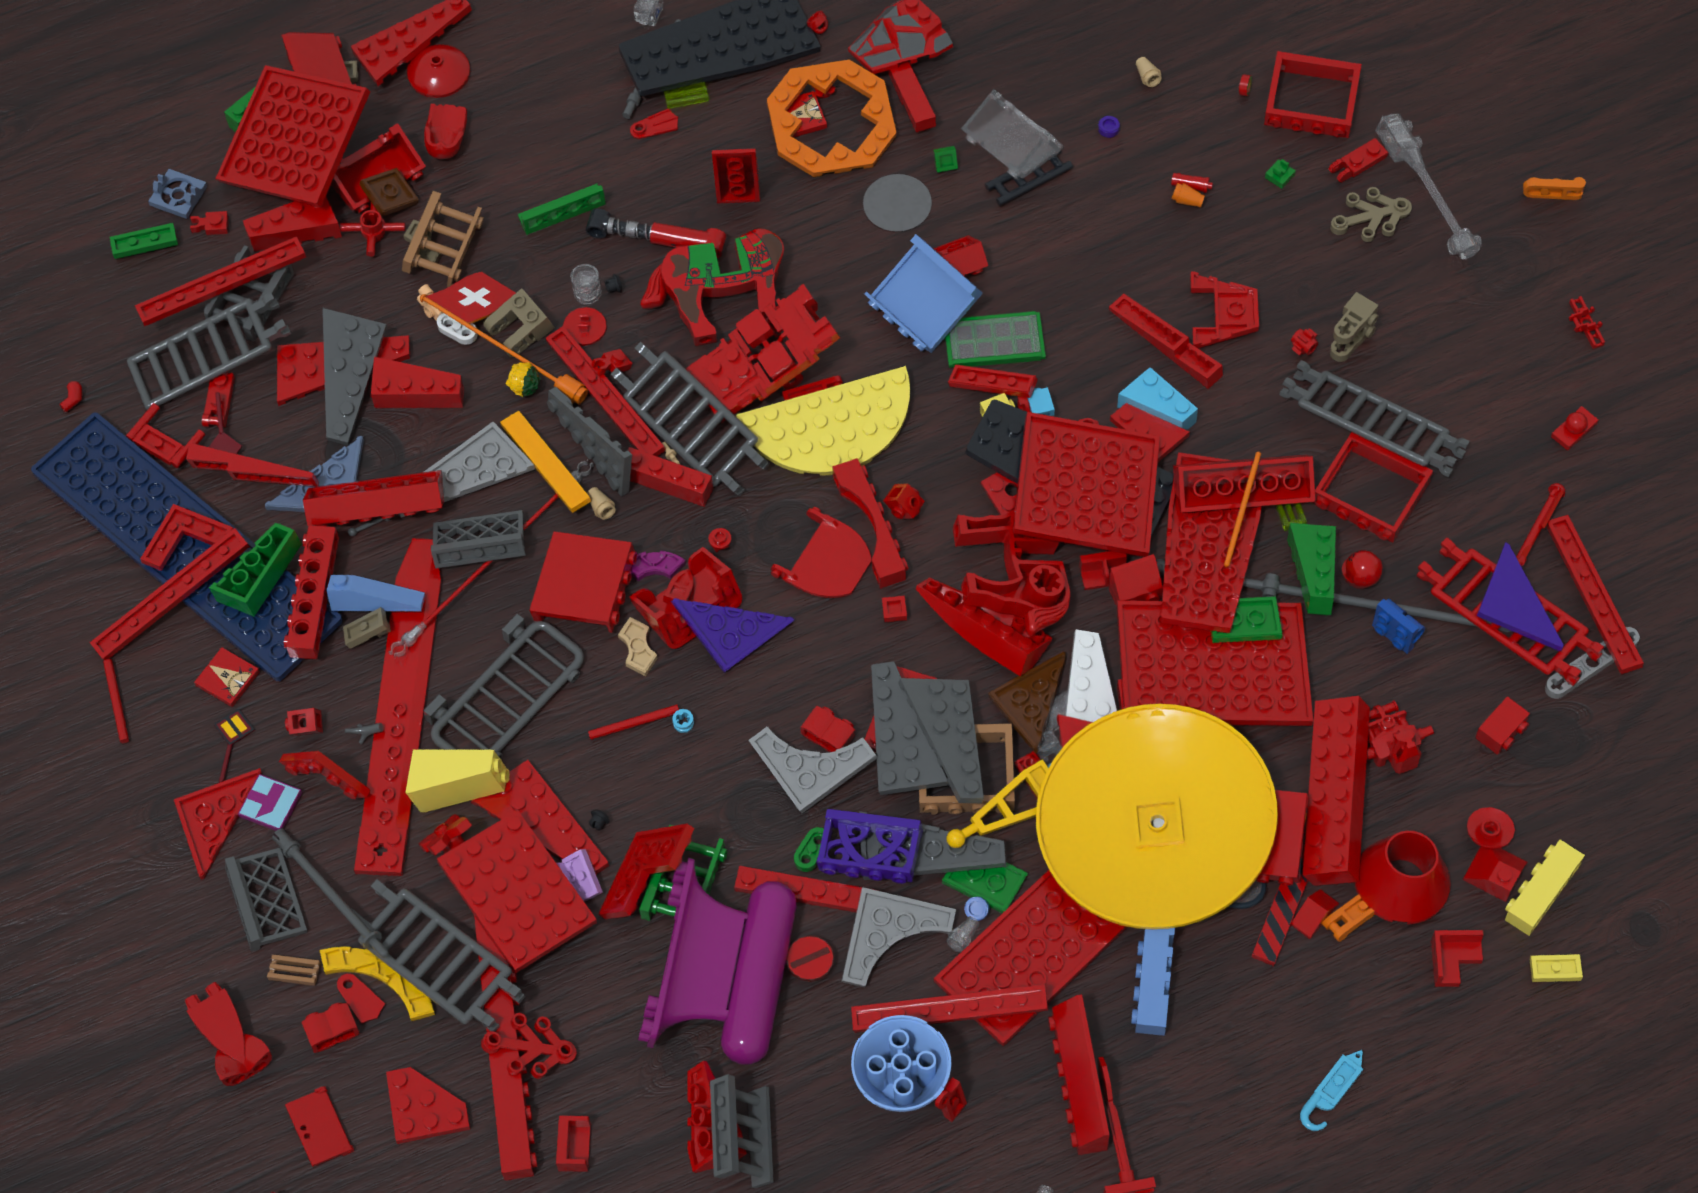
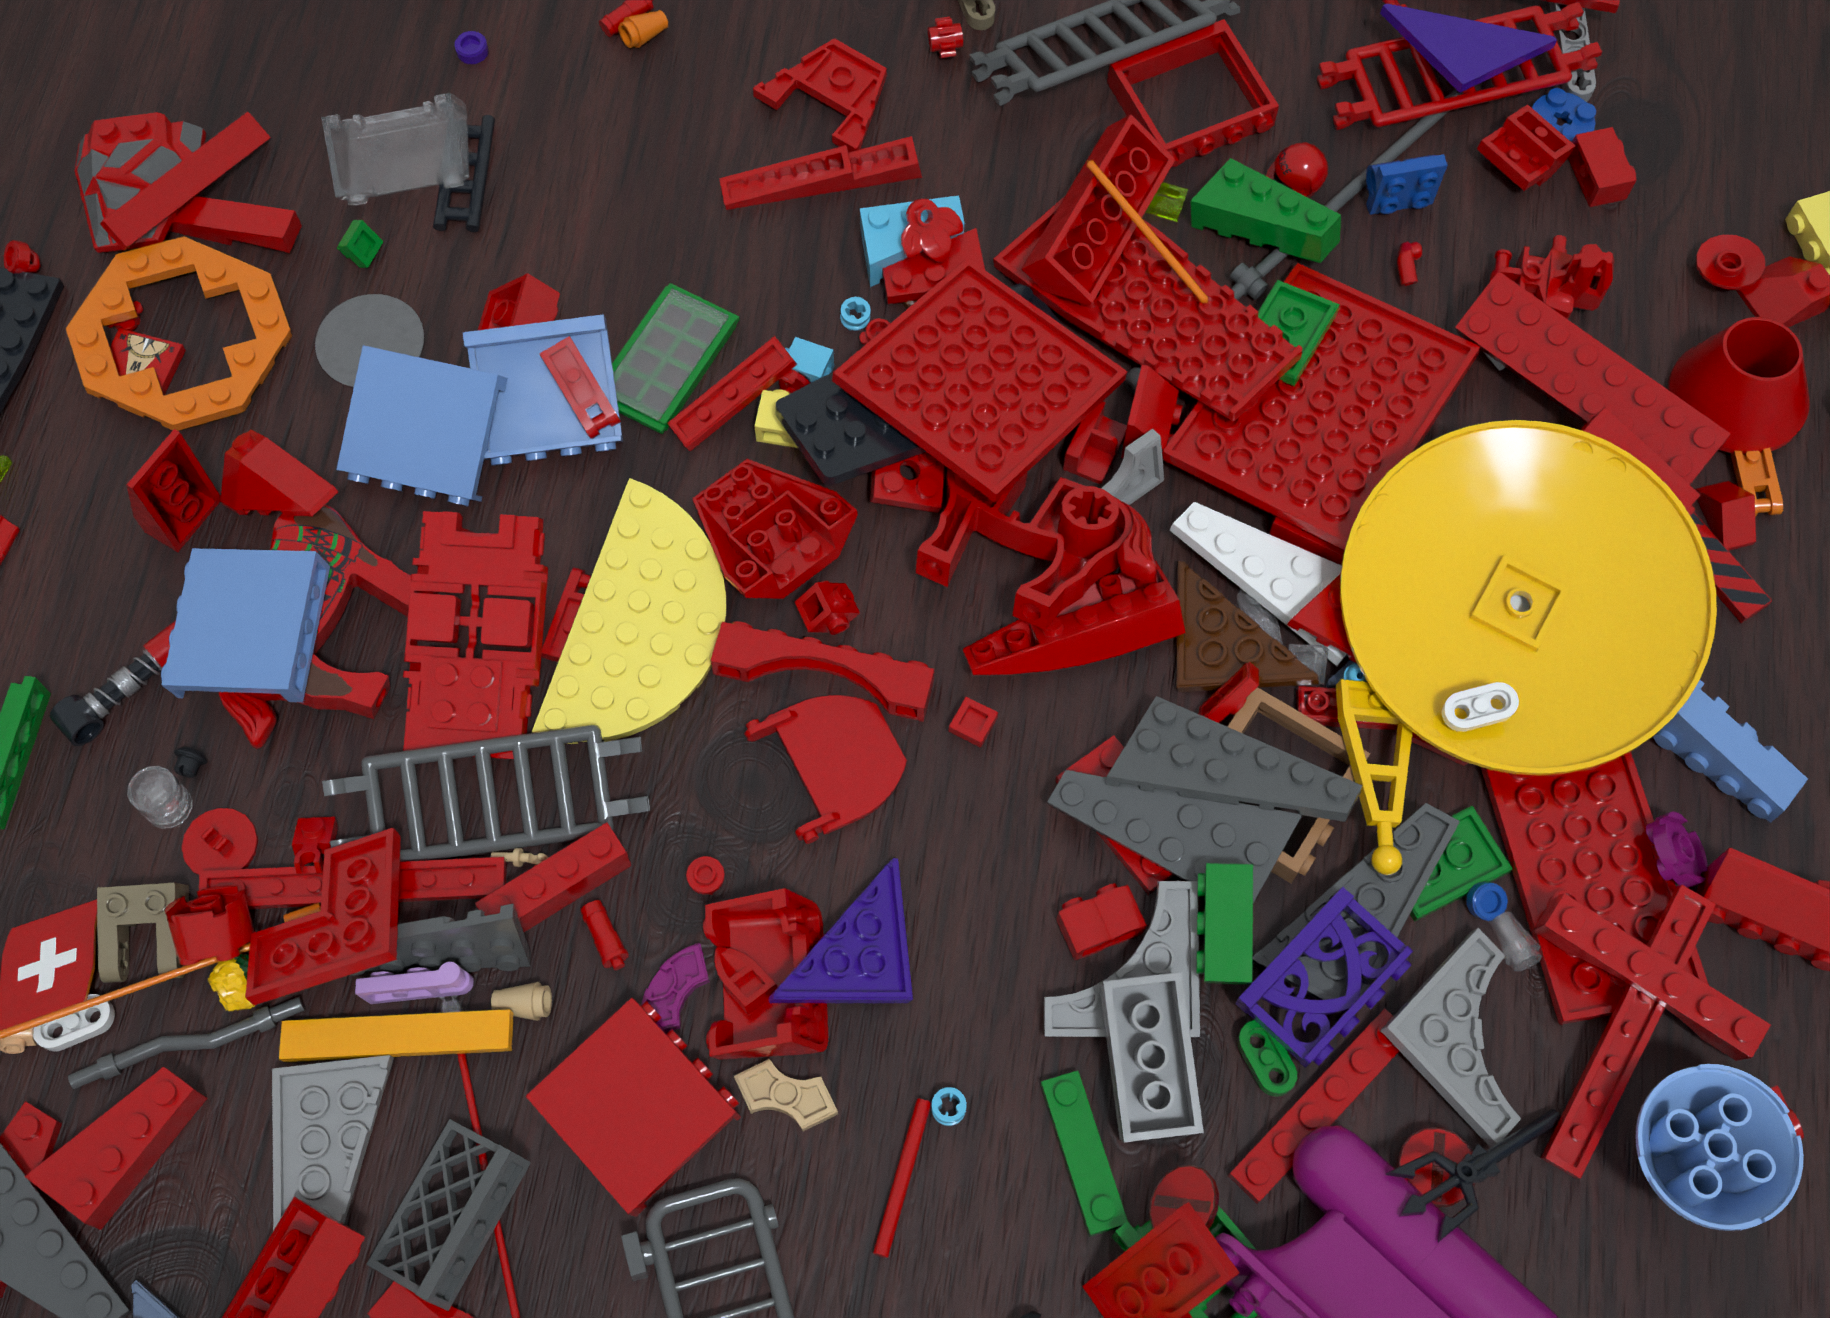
camera: 60 degrees left, 5 degrees up
(450, 358) = (112, 1064): none -> dark grey bar
(538, 346) = (210, 925): none -> red brick
(573, 401) = (347, 935): none -> red plate
(575, 452) = (416, 984): none -> lavender plate
(658, 516) = (605, 937): none -> red piece
(693, 254) = (246, 622): none -> medium blue panel
(704, 845) = (1181, 1186): none -> red piece
(705, 792) = (1083, 1153): none -> green plate
(768, 787) = (1151, 1057): none -> light grey brick
(778, 211) = (269, 479): none -> red wedge
(813, 966) = (1471, 1169): none -> black piece
(859, 253) = (419, 424): none -> medium blue panel
(861, 779) = (1226, 923): none -> green brick
(915, 58) = (184, 181): none -> red tile
(928, 449) = (772, 528): none -> red wedge
(935, 308) = (579, 386): none -> plate
(983, 1001) = (1694, 1002): none -> red arch
(996, 716) = (1232, 694): none -> red plate
(1066, 973) = (1679, 851): none -> magenta plate
(1073, 830) = (1478, 706): none -> white plate
(1089, 403) = (850, 321): none -> medium azure bush
(1095, 597) = (1139, 470): none -> light grey tile
(1160, 410) = (933, 234): none -> red plate
(1351, 657) = (1405, 262): none -> red arm
(1478, 678) = (1526, 148): none -> red brick
(1527, 678) = (1569, 107): none -> blue plate

